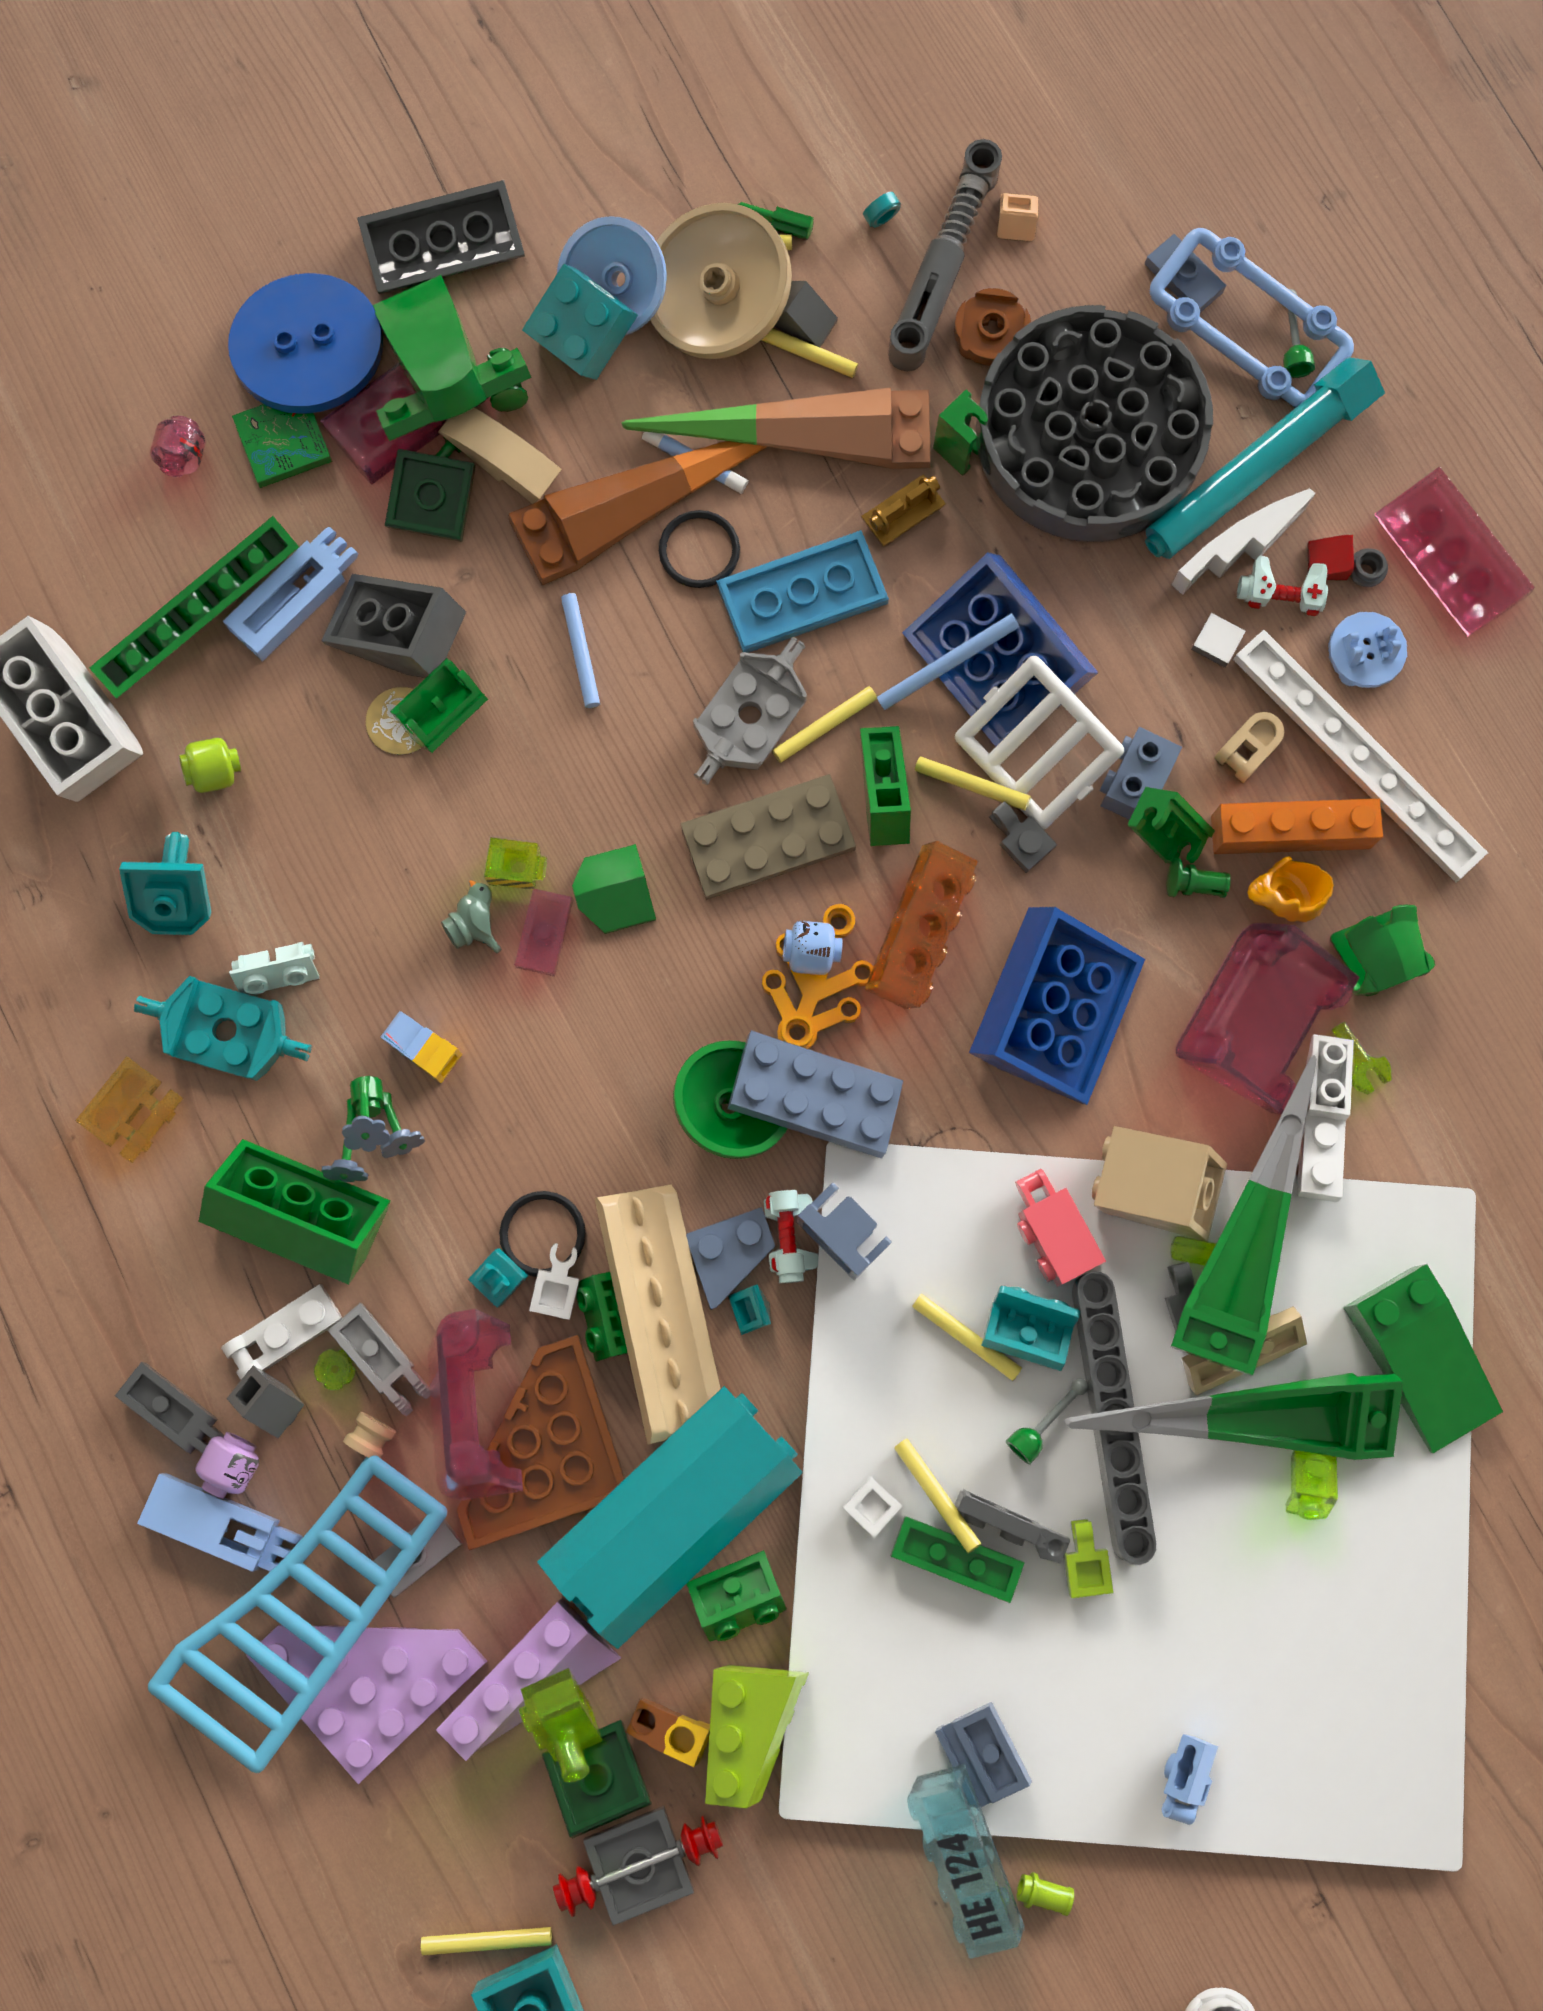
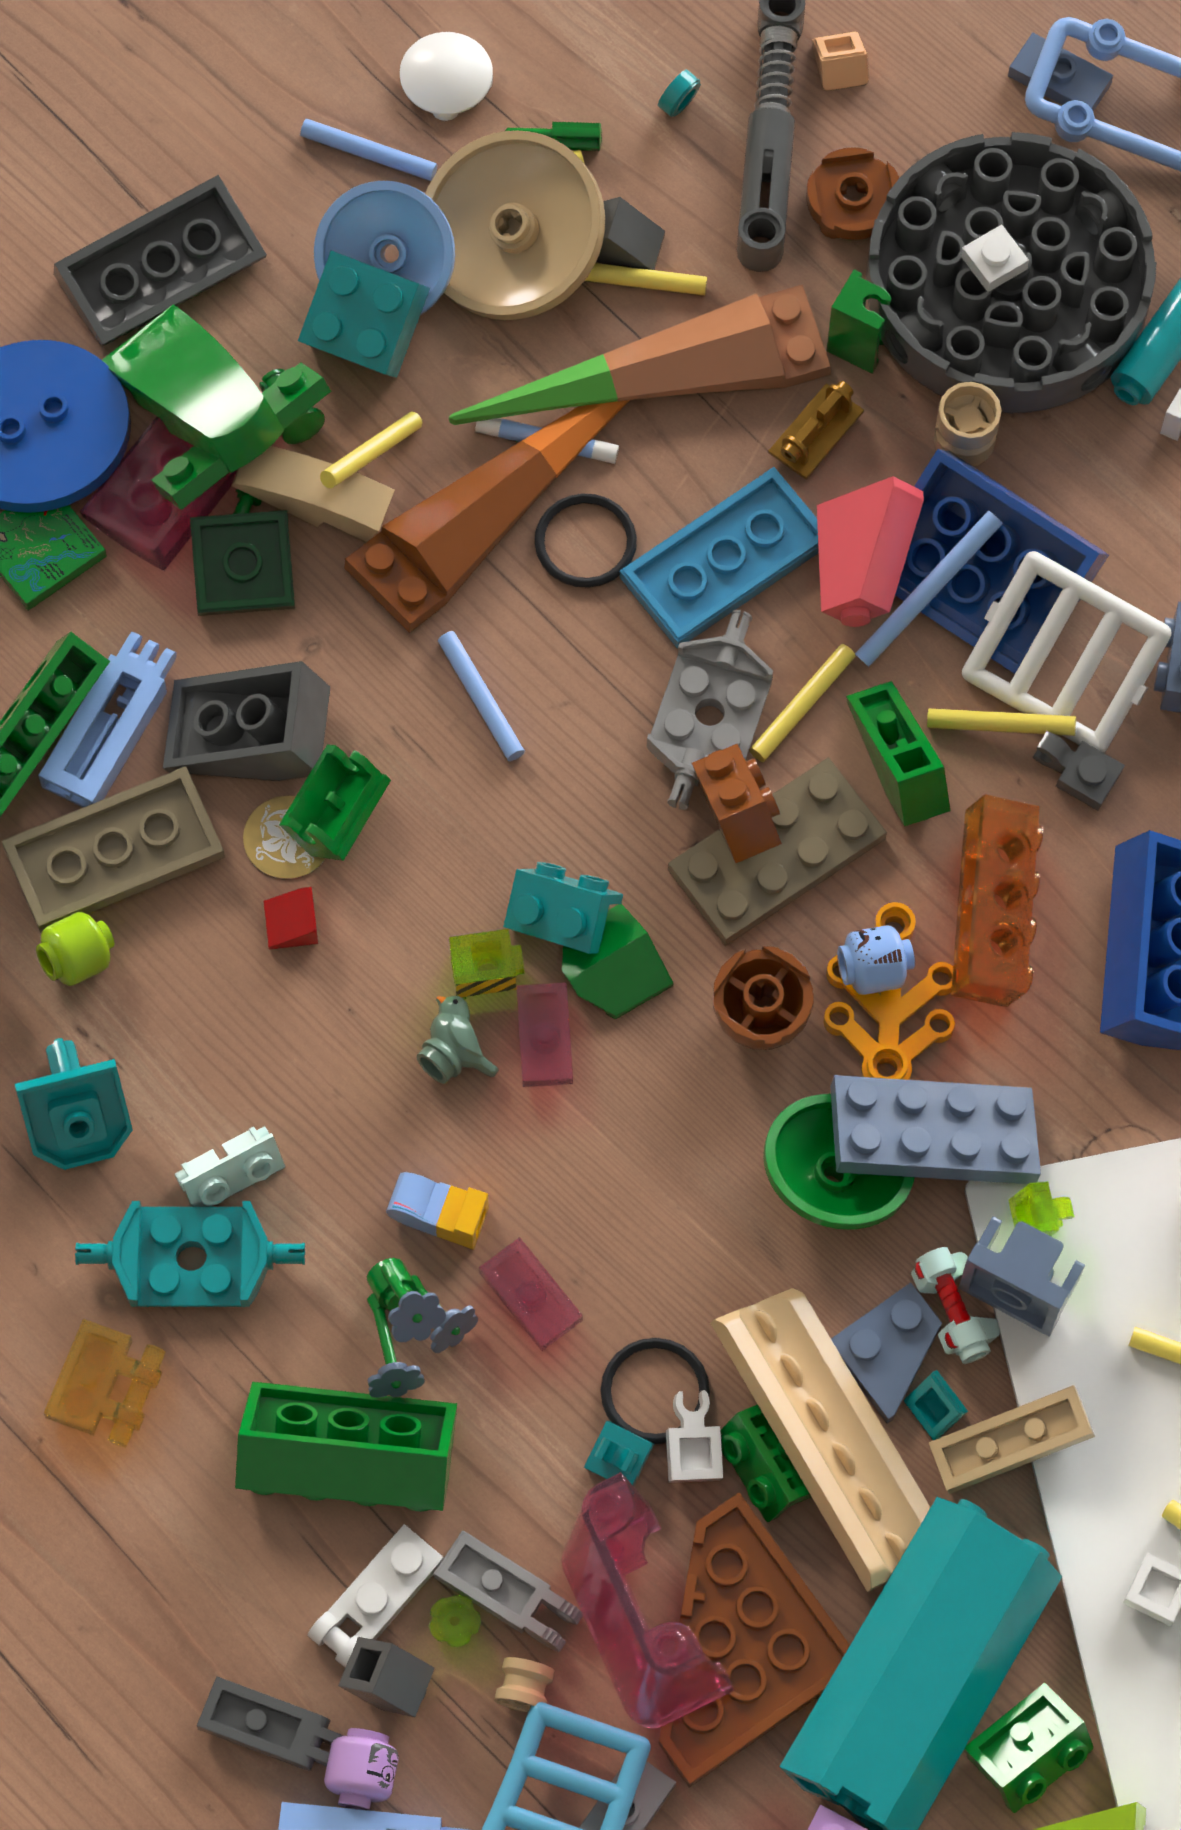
camera: 15 degrees left, 10 degrees down
(263, 694) = (113, 848): none -> dark tan plate
(382, 787) = (291, 919): none -> red slope
(469, 1132) = (530, 1294): none -> clear pink plate
(552, 432) = (371, 450): none -> light yellow bar
(585, 835) = (560, 907): none -> teal bracket
(628, 190) = (368, 149): none -> light blue bar
(708, 146) = (446, 74): none -> white dish
(714, 953) = (763, 998): none -> dark orange cylinder
(743, 793) = (737, 802): none -> dark orange brick
(797, 1355) = (1011, 1439): none -> tan plate
(873, 1185) = (1038, 1209): none -> clear neon green tile
(908, 616) = (865, 548): none -> coral slope
(1021, 536) = (968, 422): none -> tan wheel
(1081, 409) = (994, 258): none -> white plate

